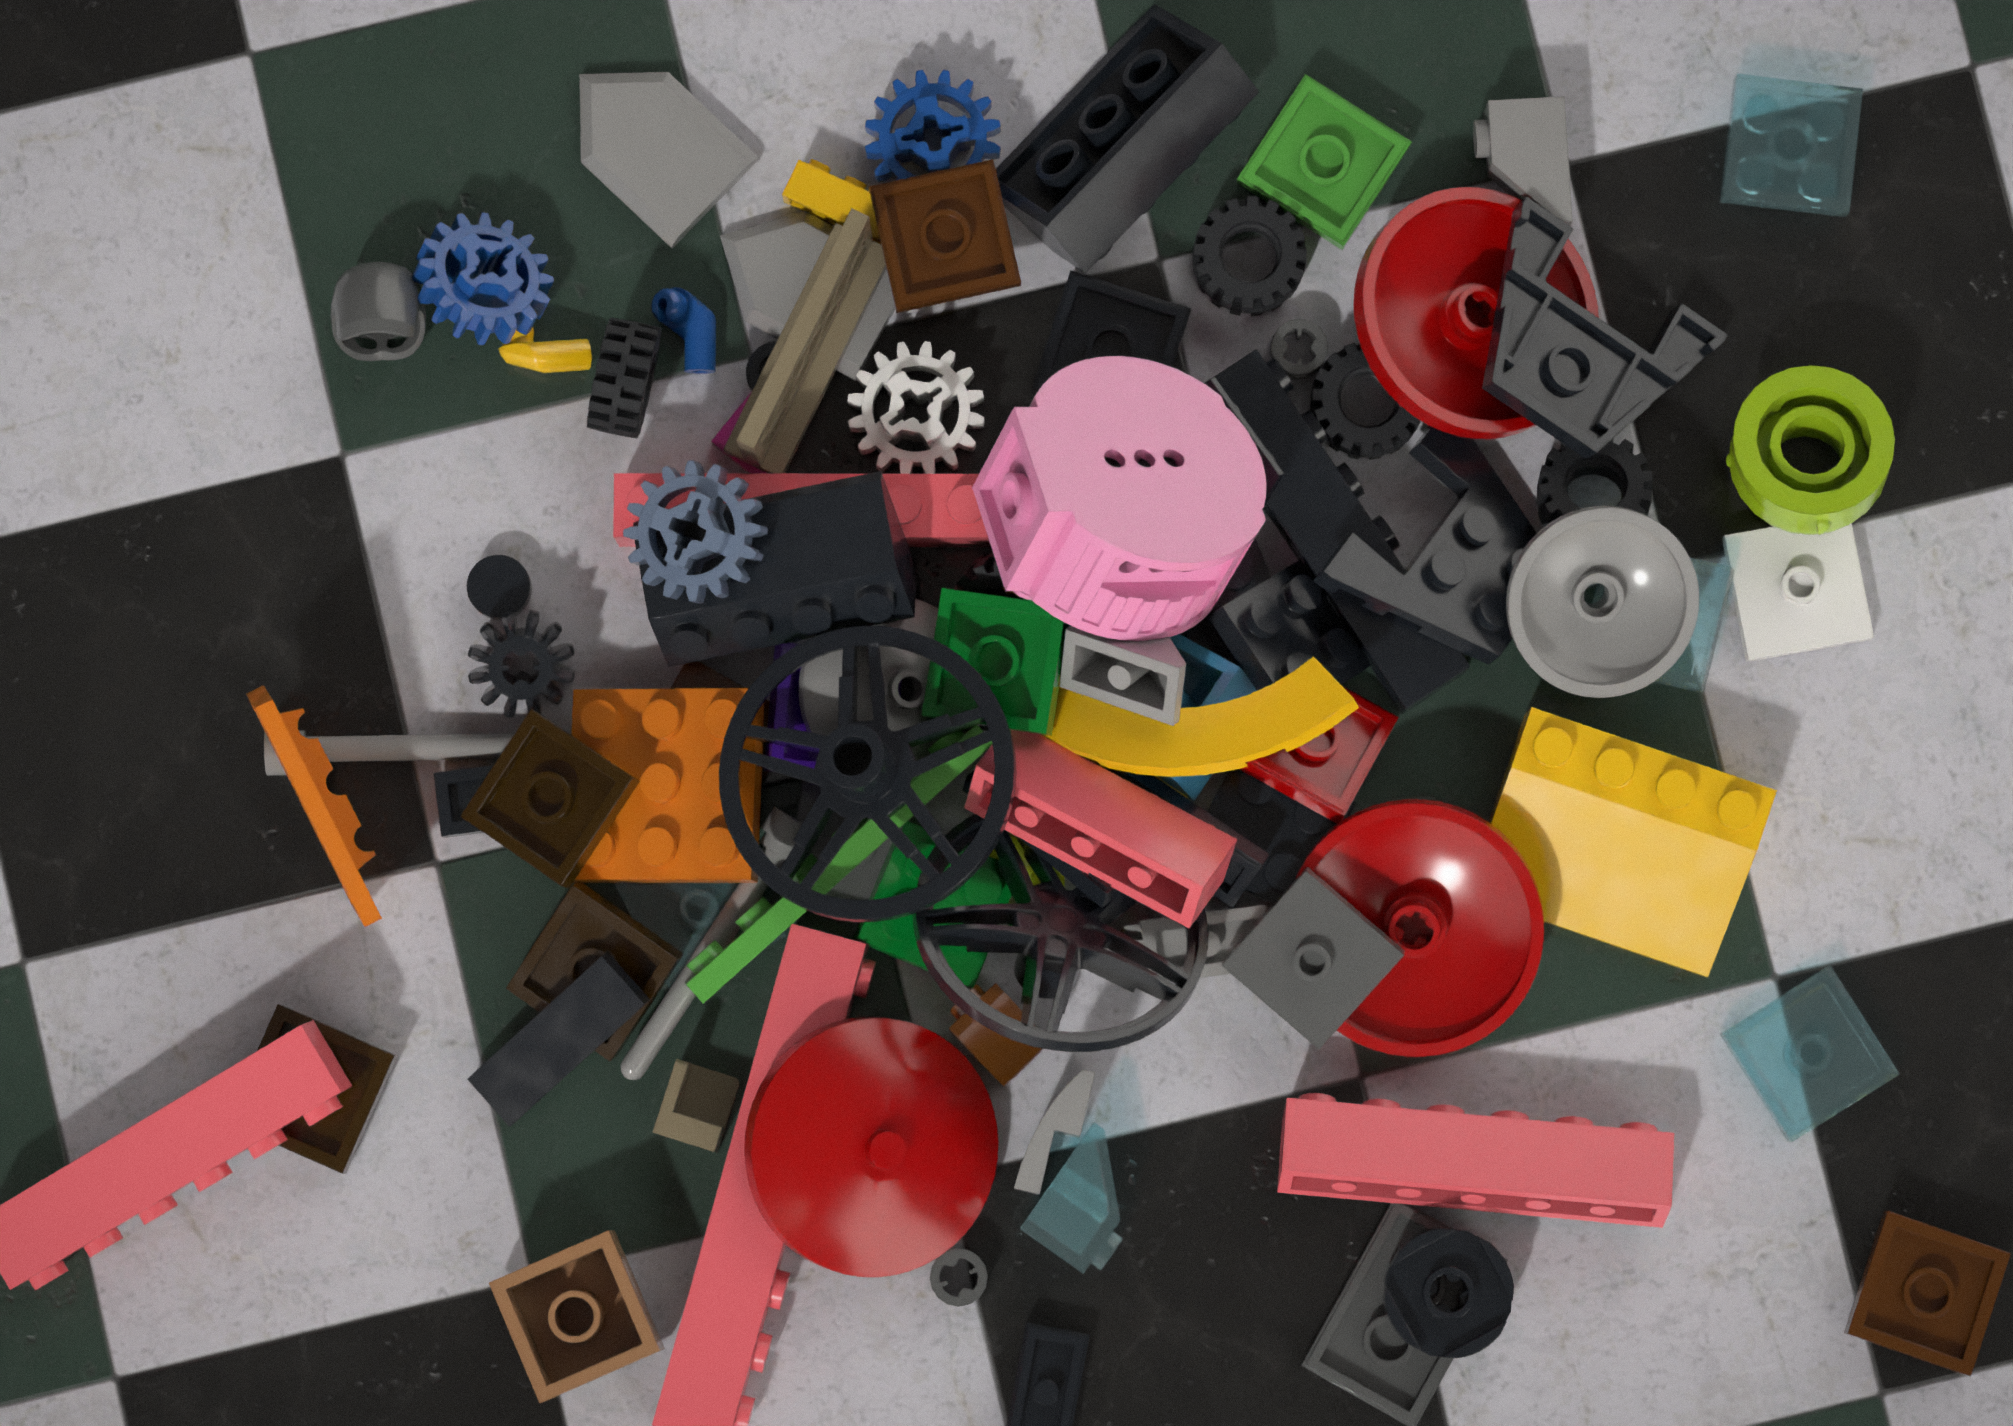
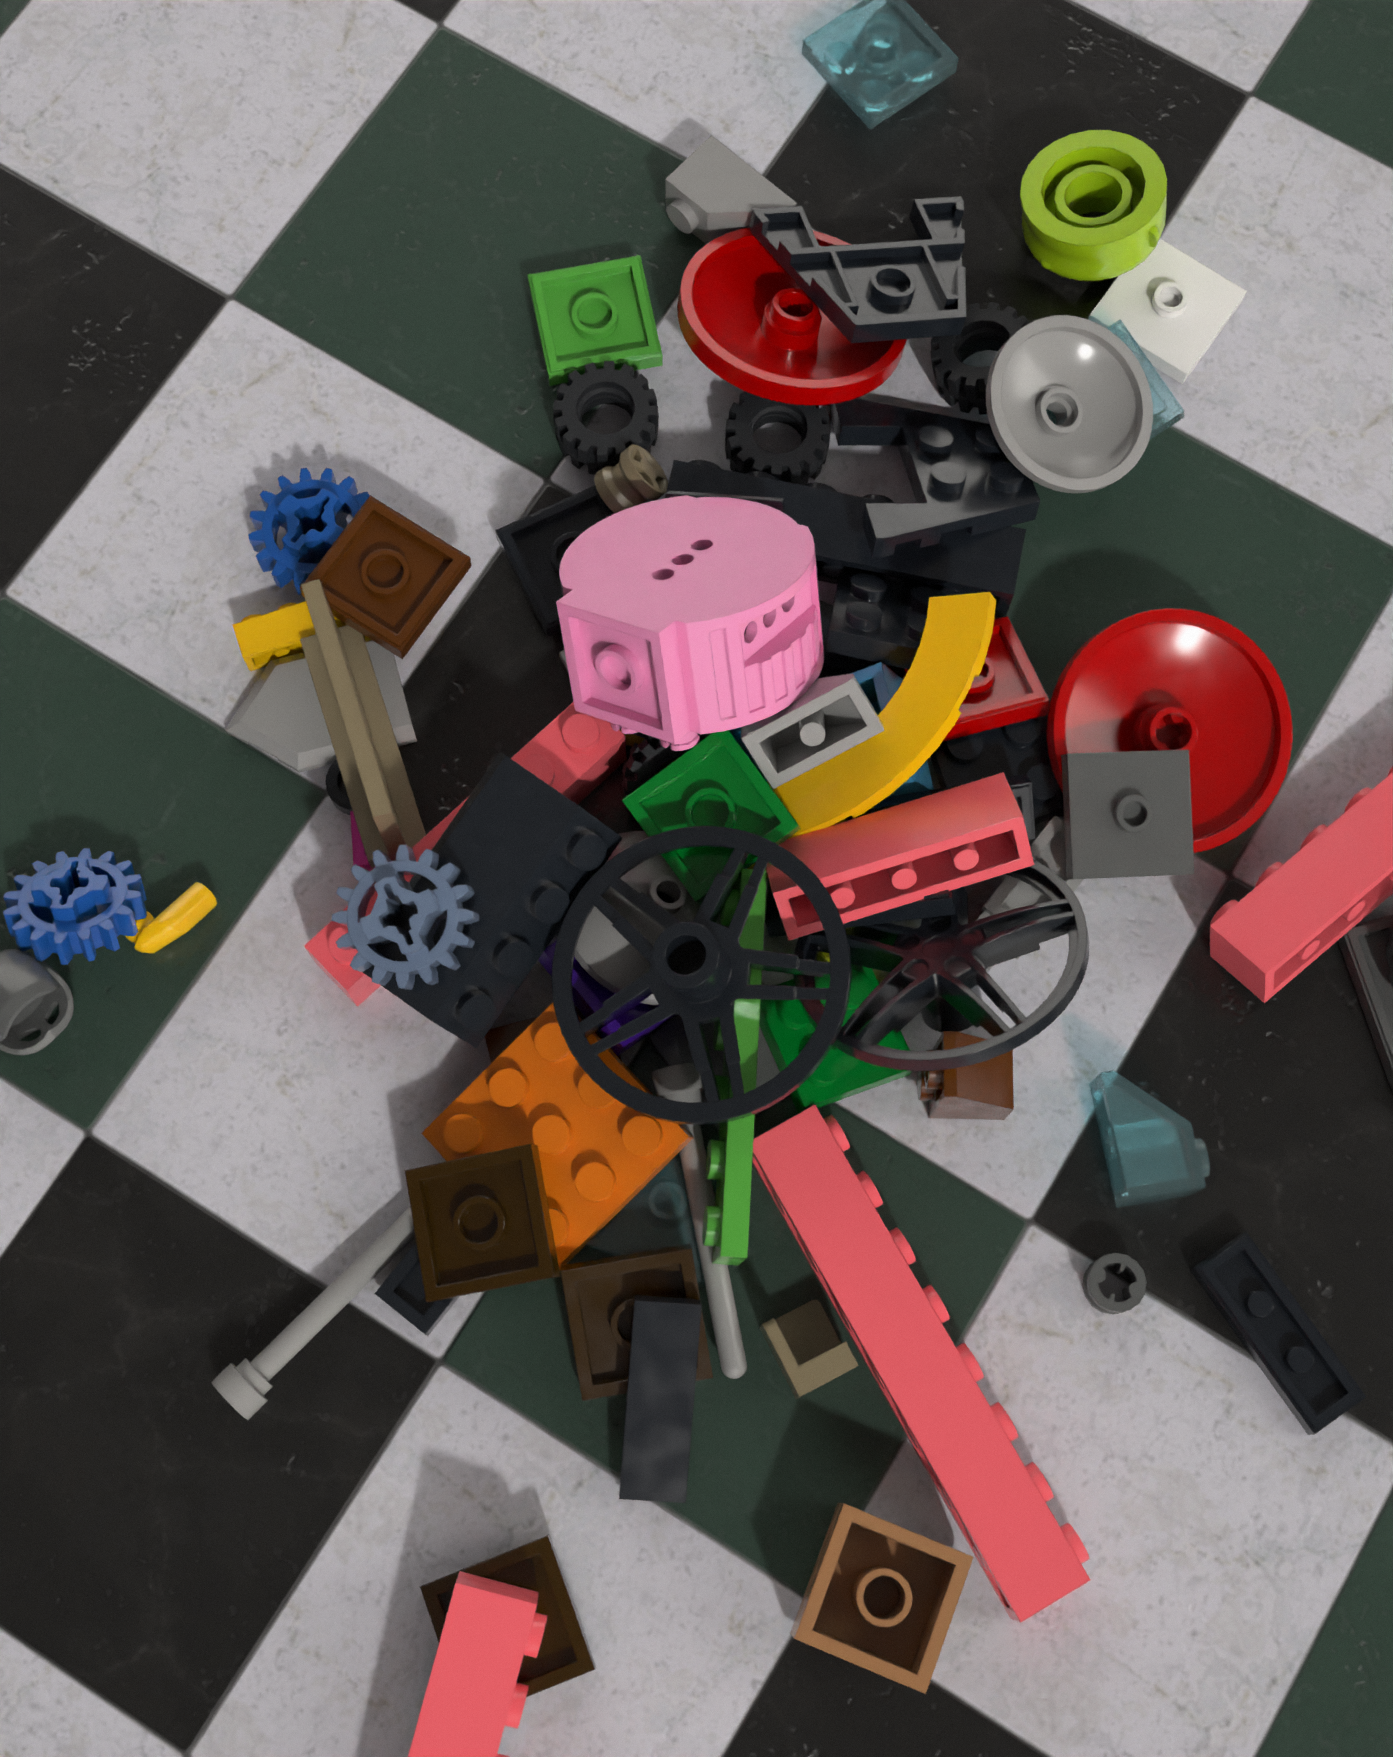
camera: 50 degrees left, 10 degrees down
(327, 812) = (323, 1402): orange piece -> none
(499, 585) = (295, 1115): black tile -> none
(520, 642) = (351, 1133): black gear -> none
(623, 377) = (247, 877): black tyre -> none
(658, 149) = (124, 713): light grey tile -> none
(693, 323) = (262, 804): blue arm -> none
(871, 1146) = (964, 1249): red dish -> none
(900, 388) = (457, 708): white gear -> none
(1062, 1117) = (1073, 1083): light grey slope -> none
(1123, 136) = (446, 414): black slope -> none
(1211, 332) = (631, 480): none -> dark tan wheel
(1318, 349) = (698, 430): dark grey bush -> none
(1630, 838) = (1238, 539): yellow slope -> none

